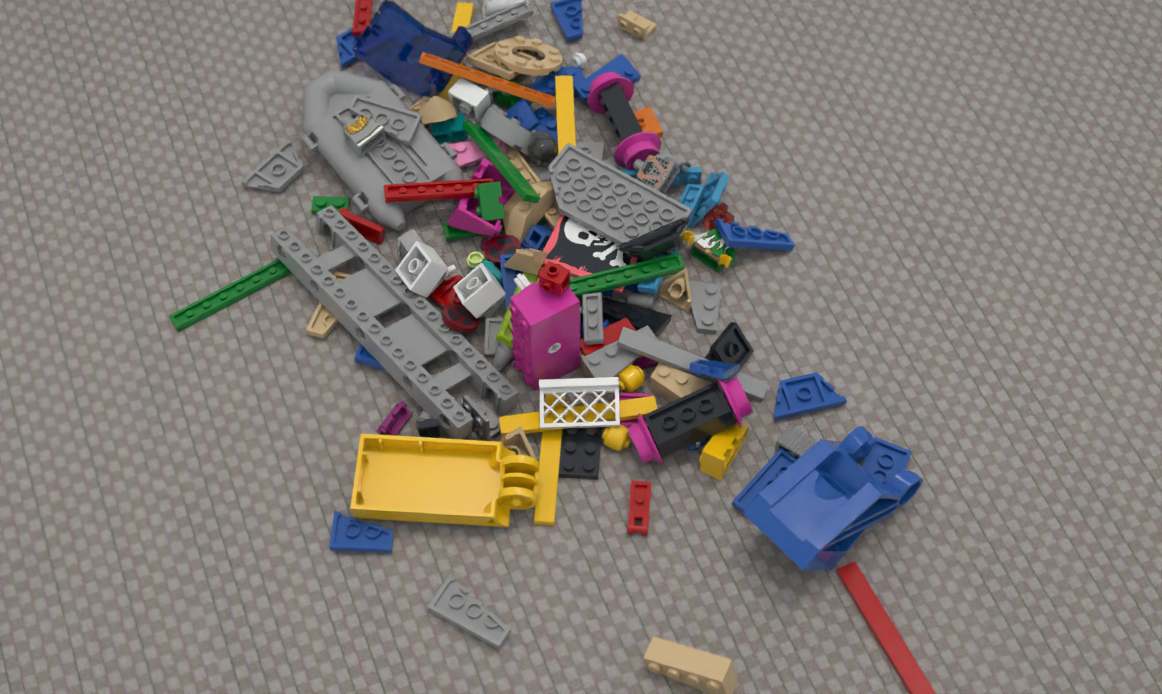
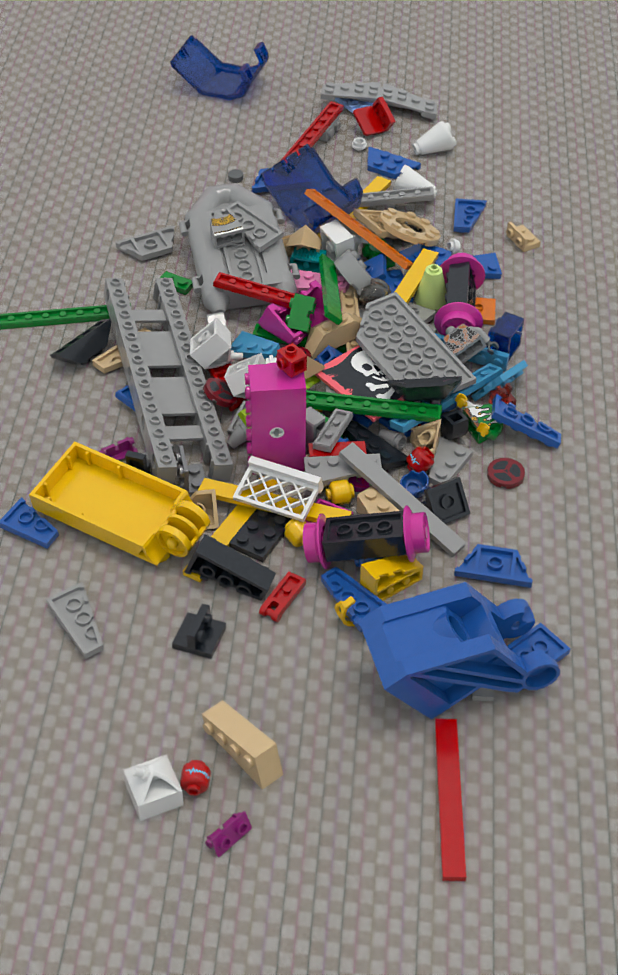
camera: 25 degrees right, 10 degrees down
(288, 314) = (85, 345): none -> black wedge
(312, 53) = (235, 175): none -> dark grey tile
(369, 230) = (190, 305): red plate -> none
(458, 251) = (252, 345): none -> dark azure wing
(580, 502) = (230, 568): none -> black wedge
(587, 578) = (199, 633): none -> black bracket
(590, 121) = (431, 288): none -> yellowish green cone
(682, 314) = (420, 459): none -> red head
(688, 144) = (506, 333): none -> clear blue piece
(691, 340) = (415, 483): none -> blue hair
(695, 263) = (453, 424): none -> black brick
(708, 484) = (343, 586): none -> blue wing
(708, 497) = (344, 605): none -> yellow helmet
(713, 368) = (415, 505): blue wing -> none
(761, 295) = (506, 473): none -> dark red tile

